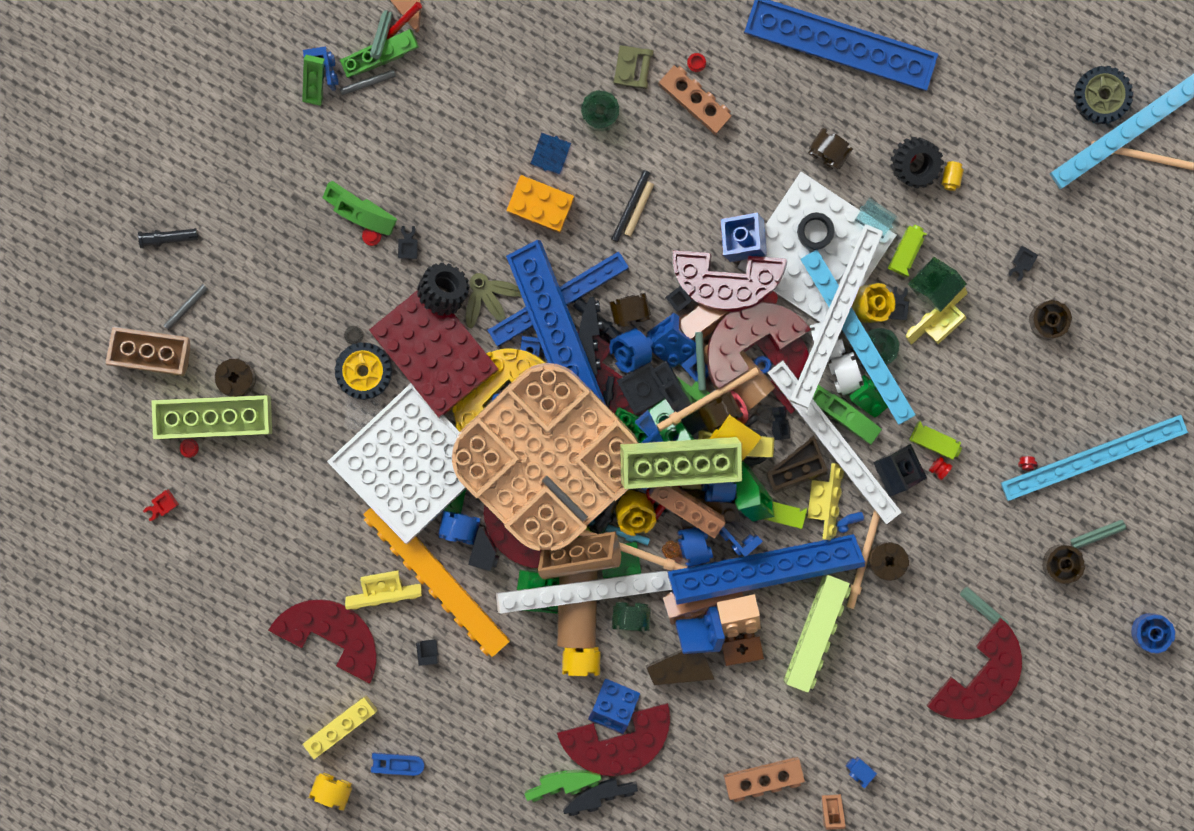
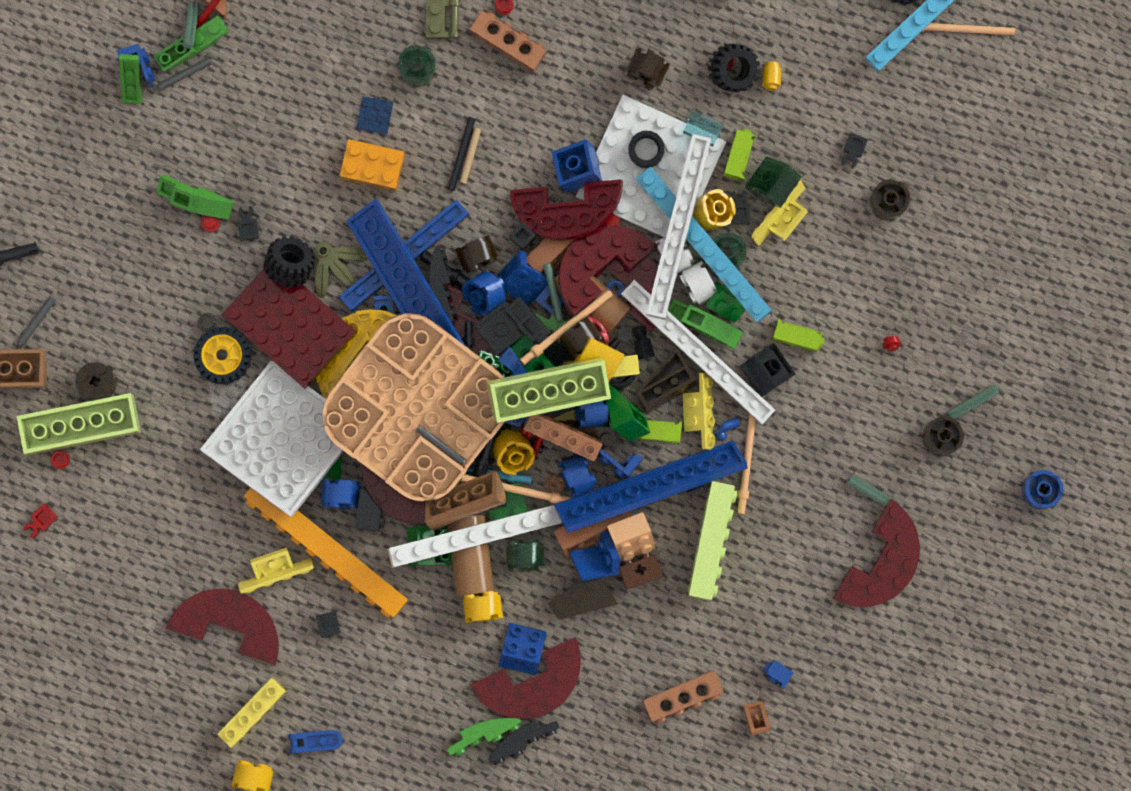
camera: 20 degrees left, 5 degrees down
(899, 561) = (781, 460): dark brown brick -> none
(940, 468) = (807, 361): red wheel -> none
(1094, 457) = (955, 328): medium azure plate -> none

